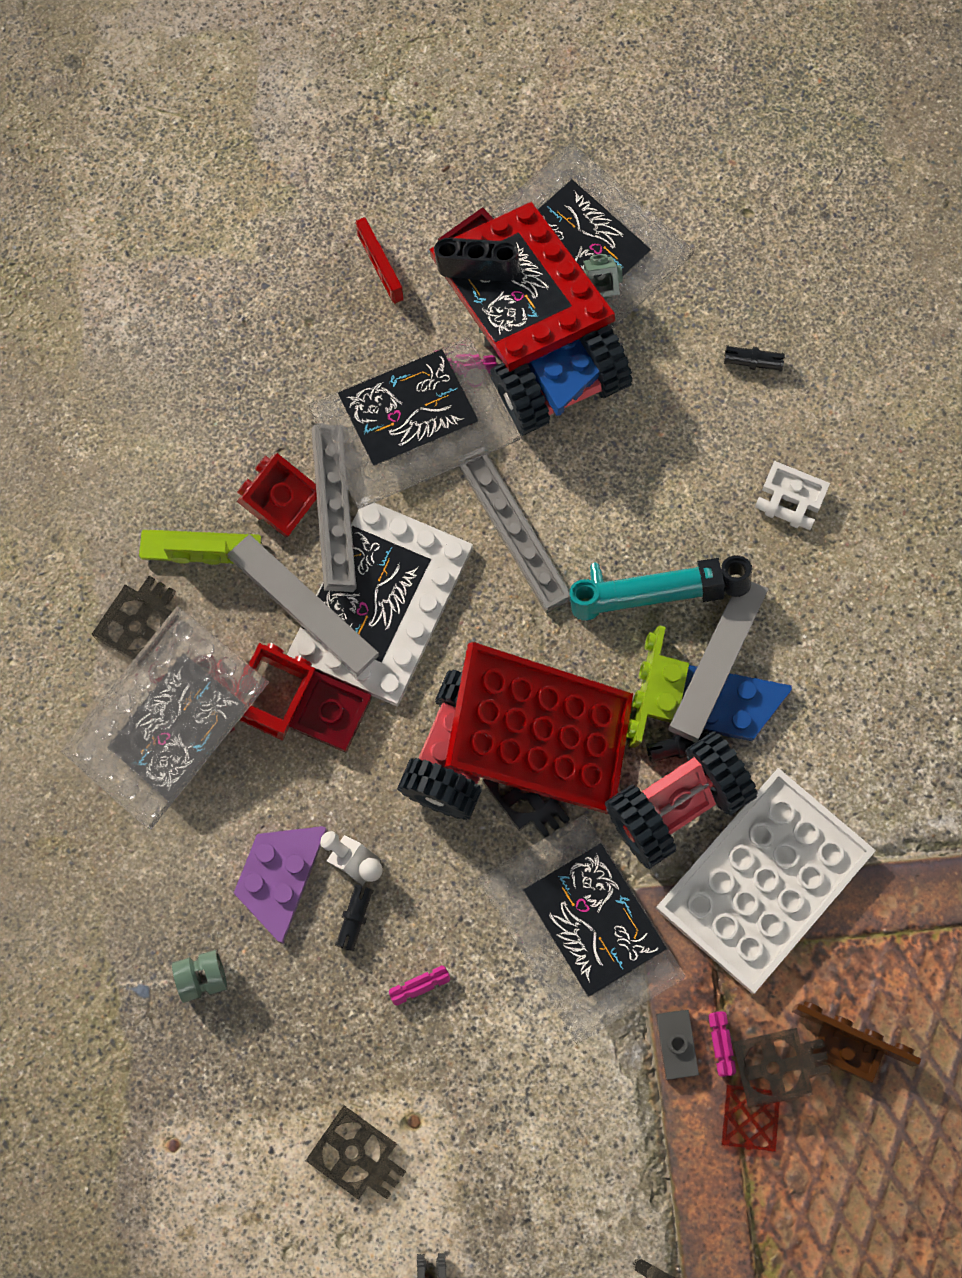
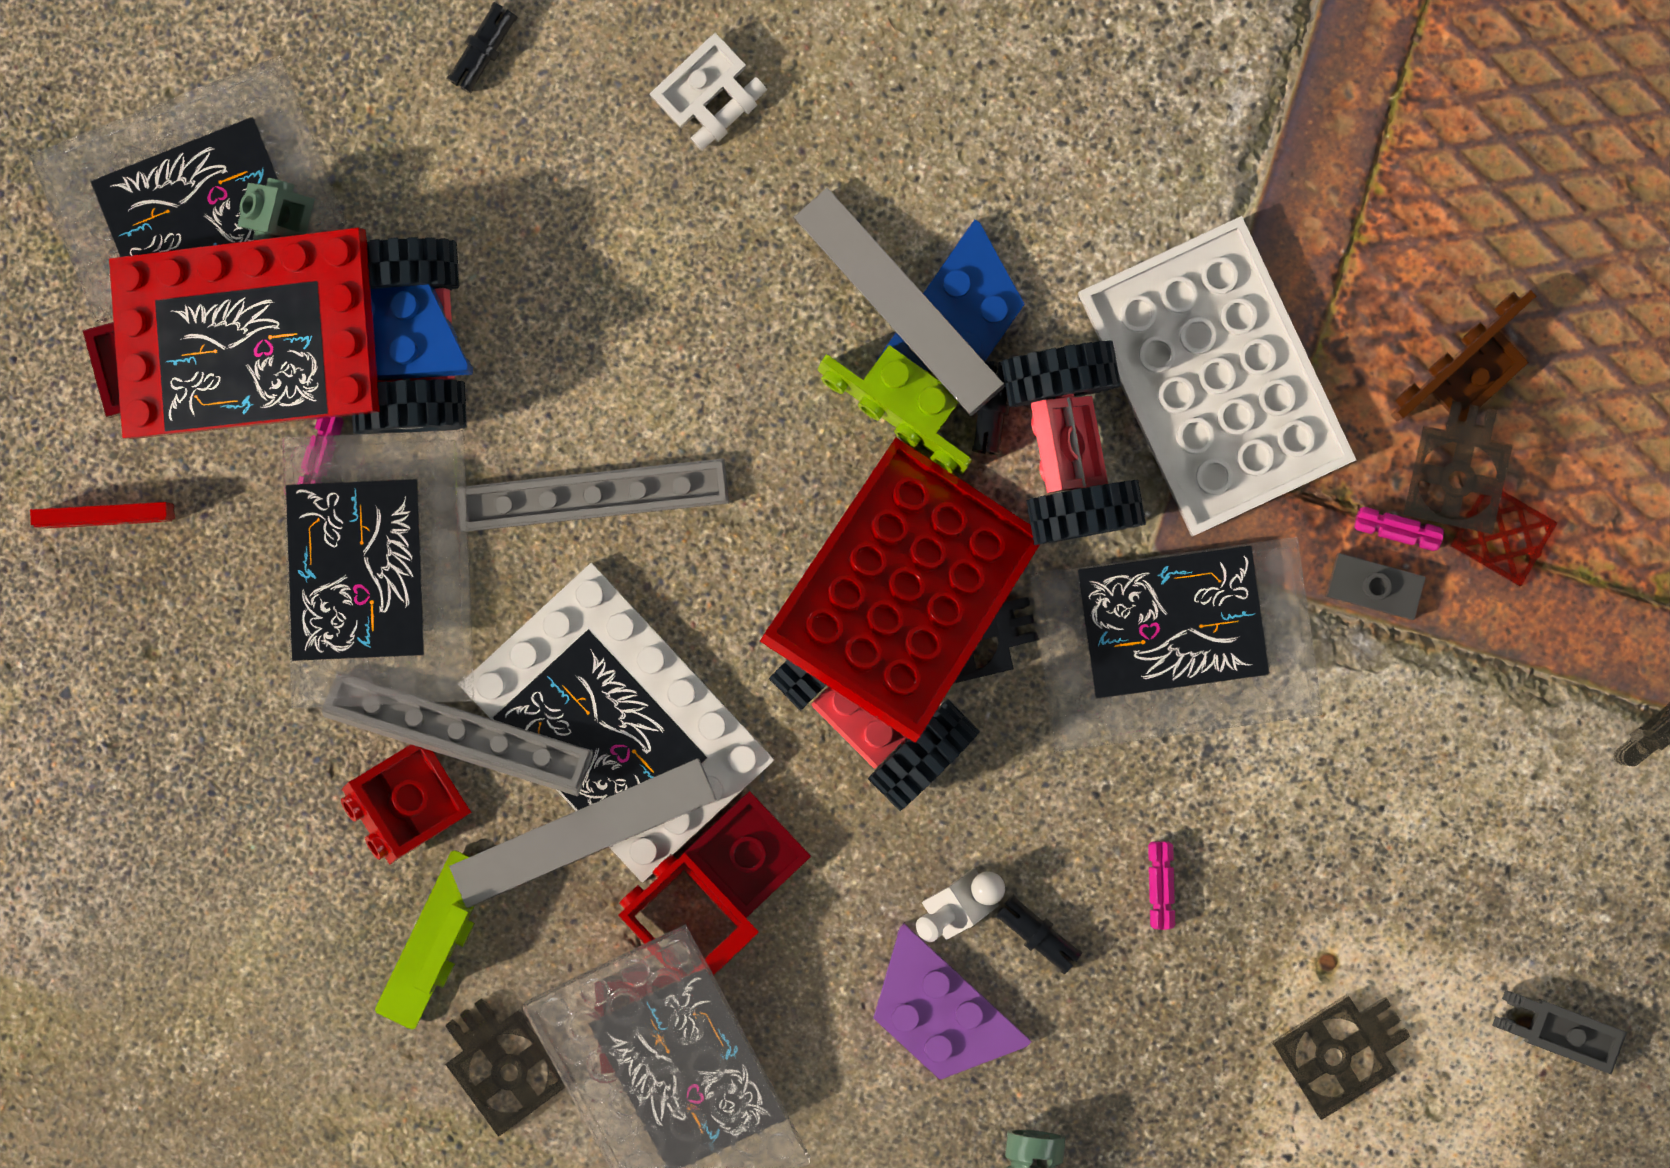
camera: 70 degrees left, 15 degrees up
(477, 259) = (164, 390): black beam -> none
(704, 581) = (784, 272): teal piece -> none

